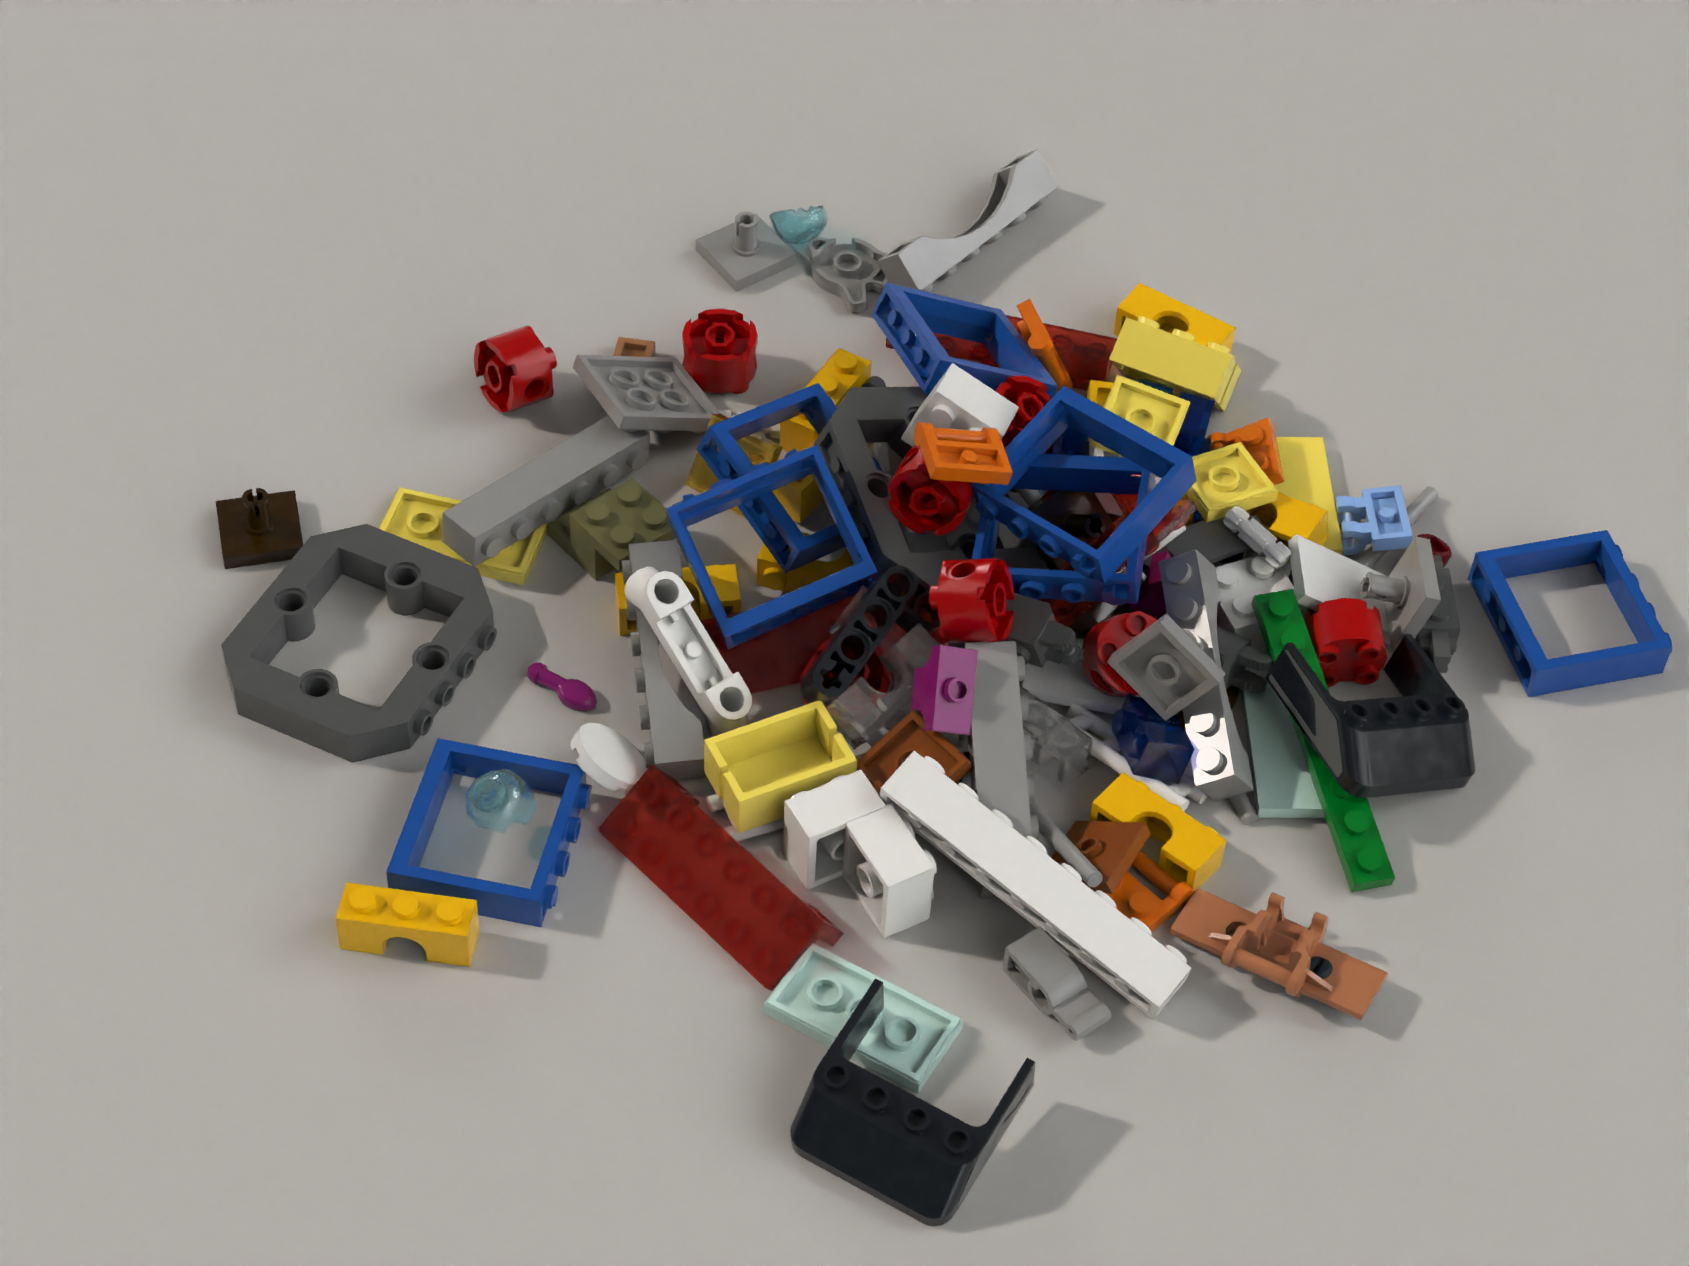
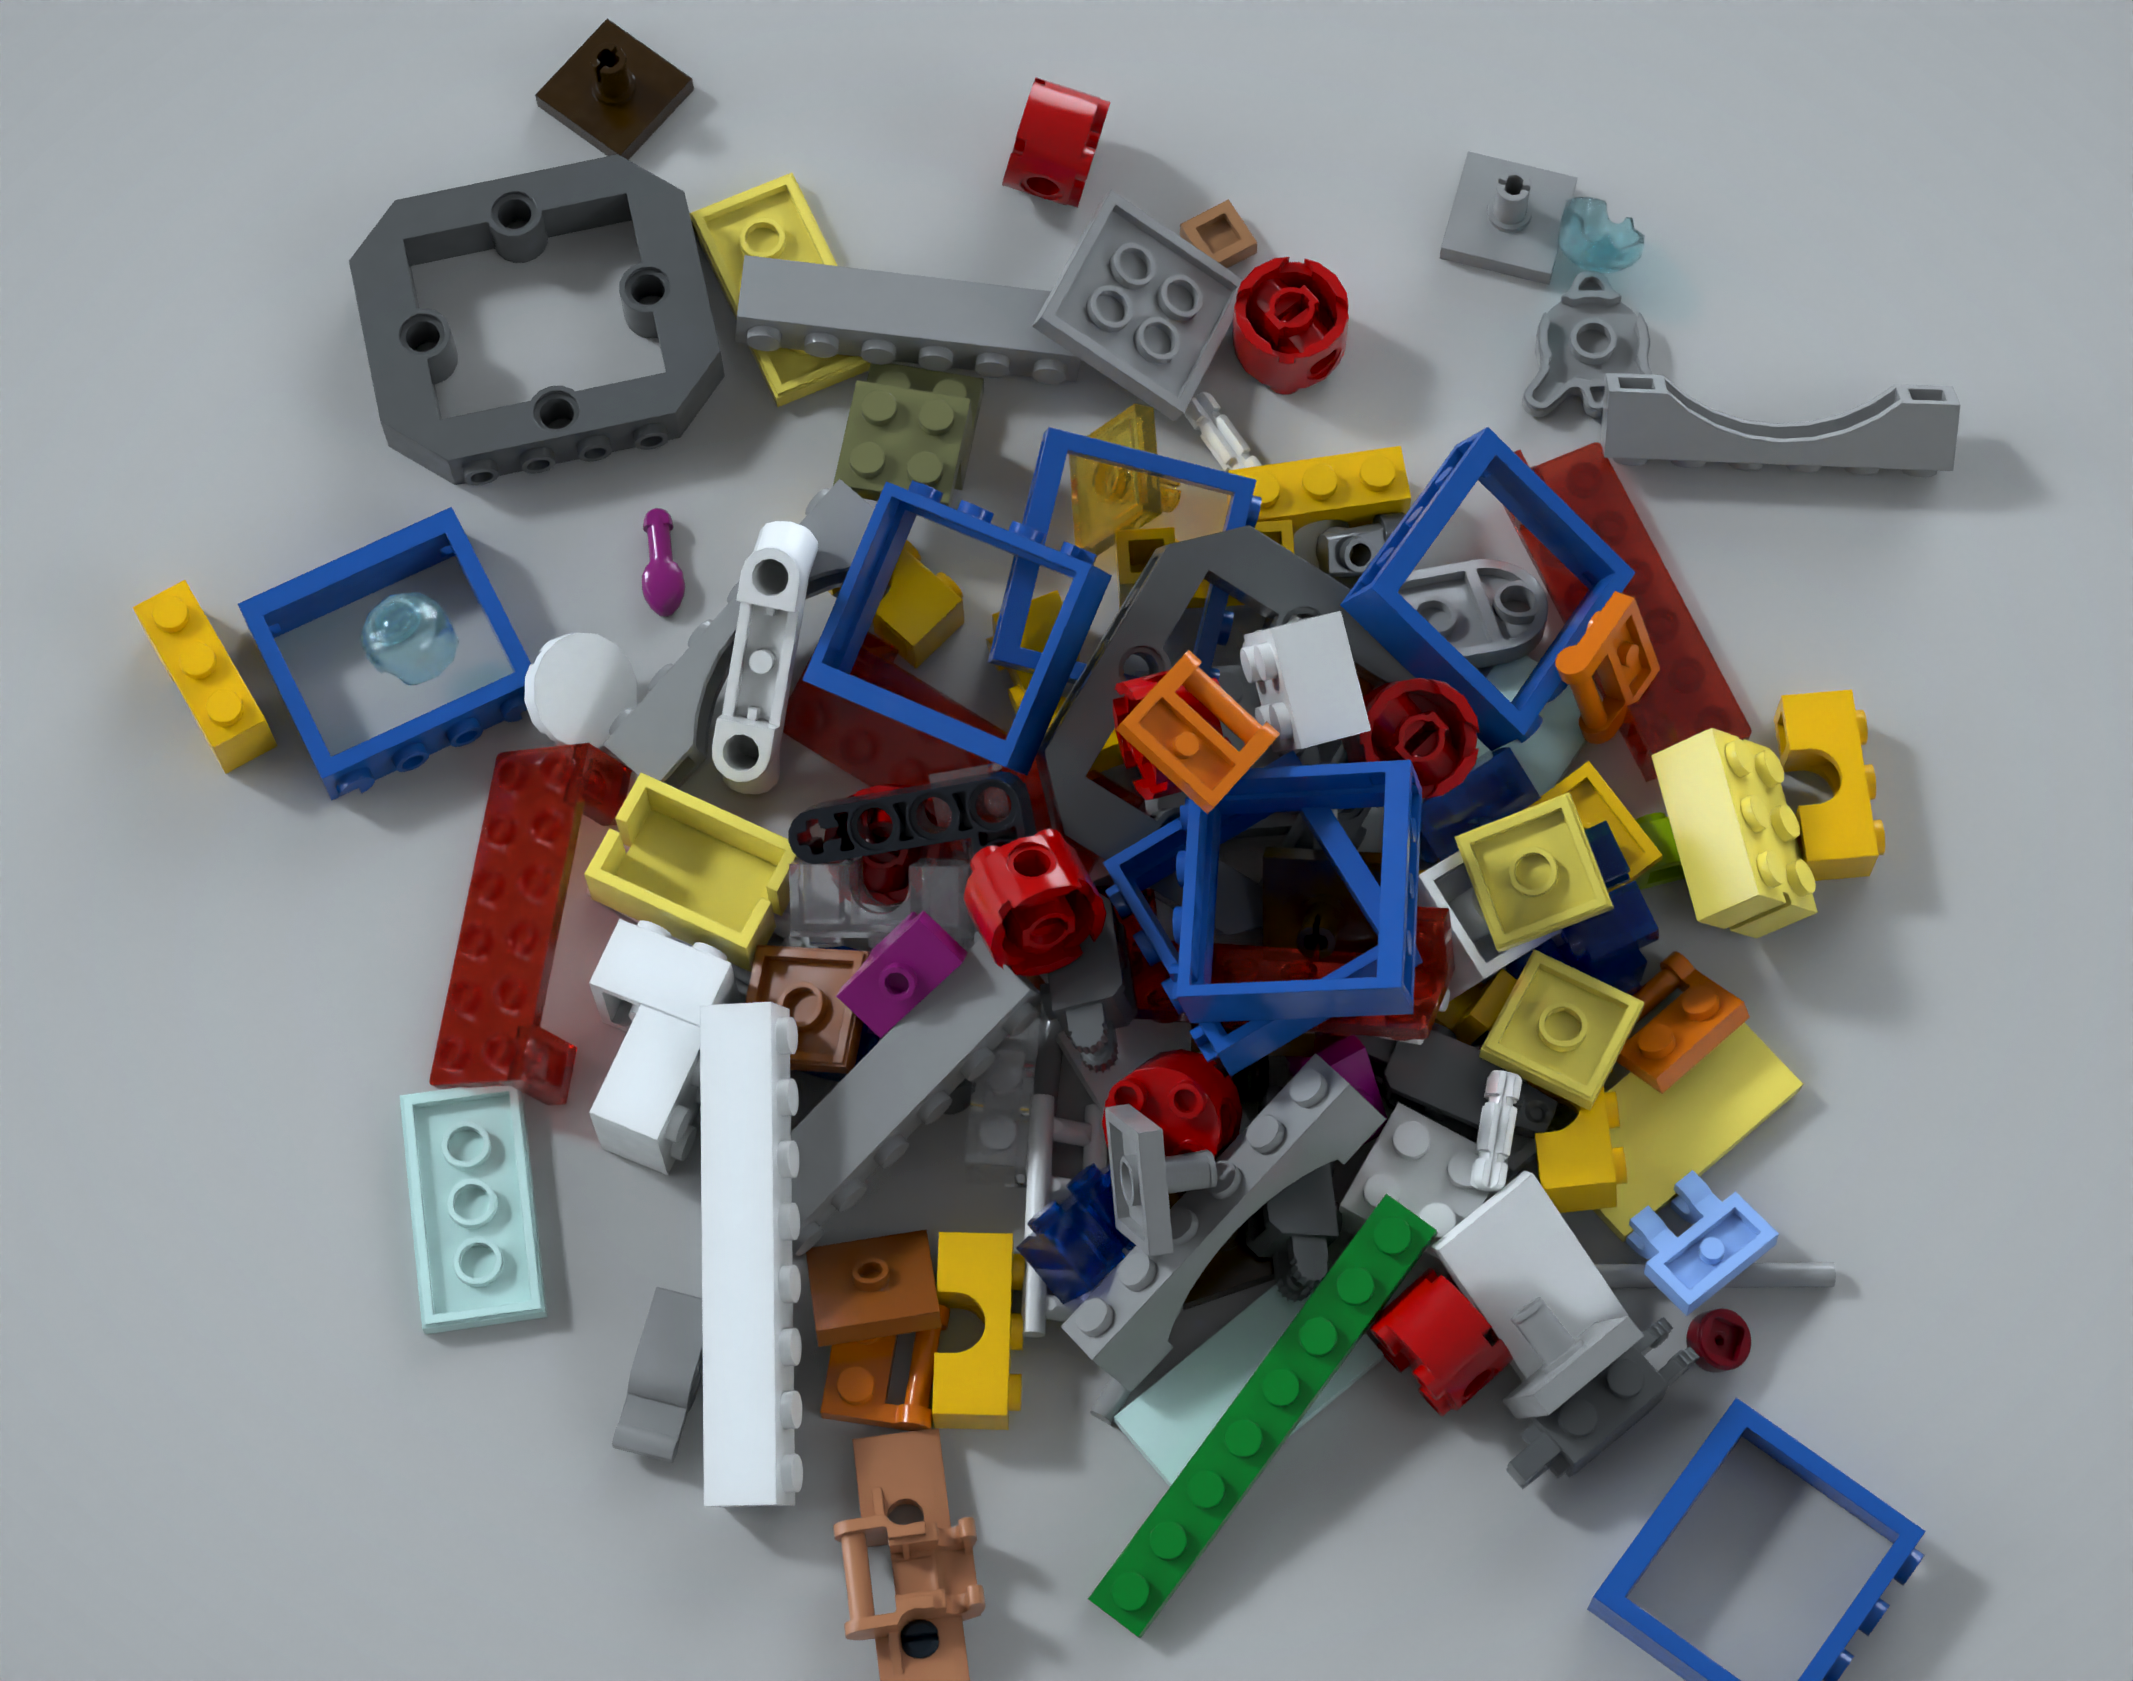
camera: 55 degrees right, 20 degrees up
(888, 1137) = (310, 1352): black windscreen -> none
(1065, 847) = (858, 1232): light grey bar -> none
(1383, 742) = (1317, 1509): black windscreen -> none

